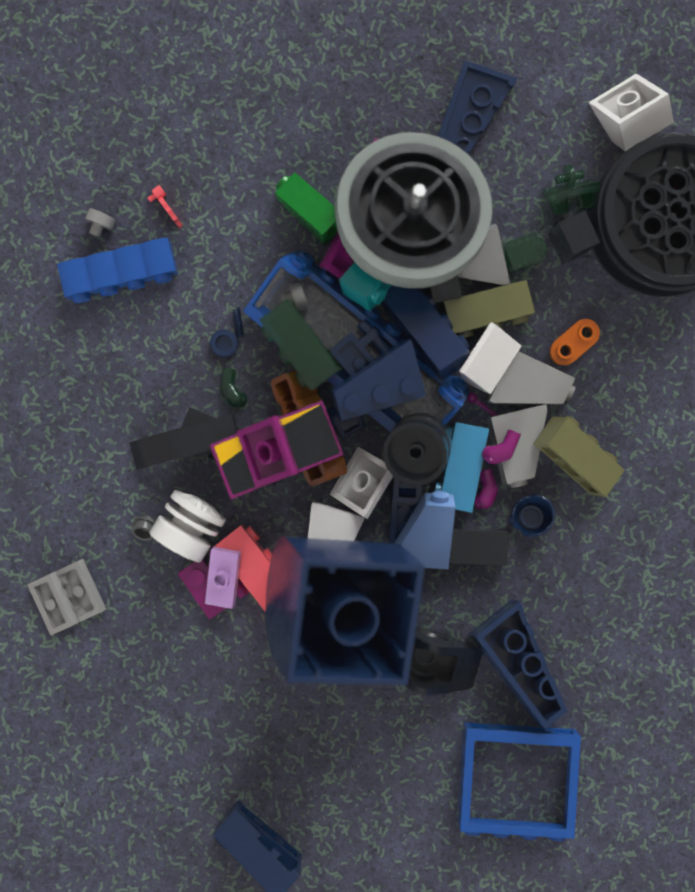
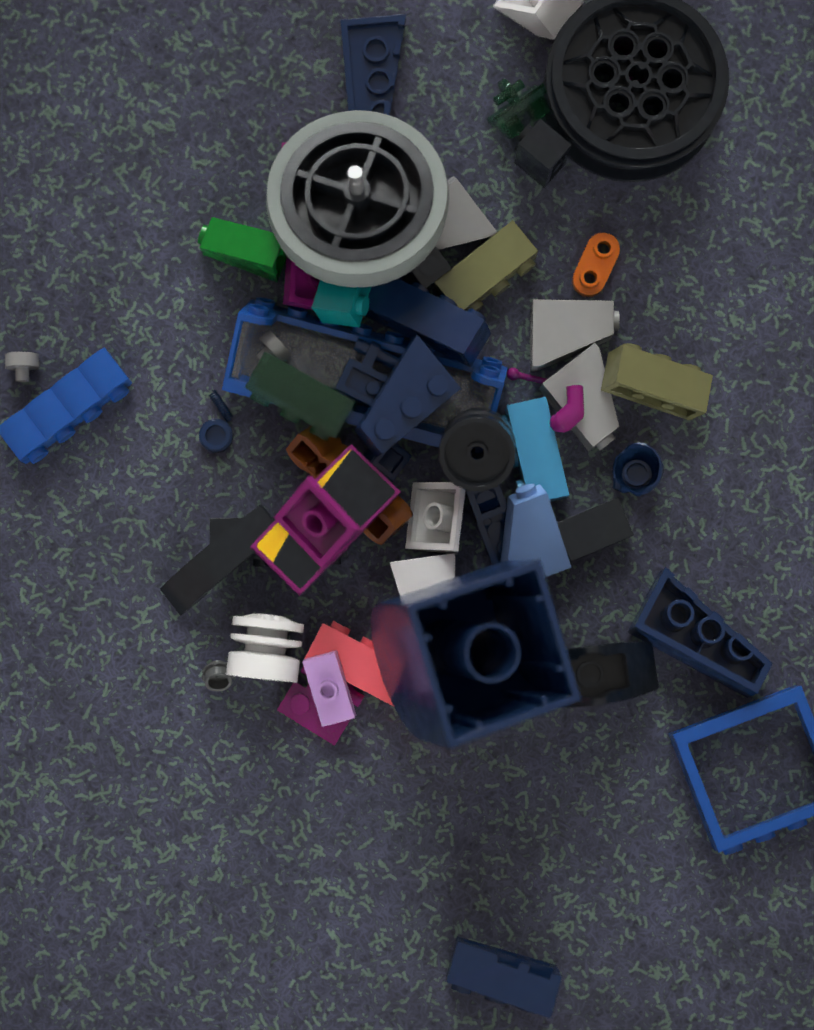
camera: 25 degrees left, 5 degrees down
(57, 605) = (164, 792): light grey slope -> none
(159, 194) = (73, 305): coral piece -> none
(229, 390) = (245, 484): clear green arm -> none
(488, 492) = (577, 466): magenta arm -> none
(489, 359) = (511, 321): white slope -> none
(524, 252) = (497, 193): clear green brick -> none

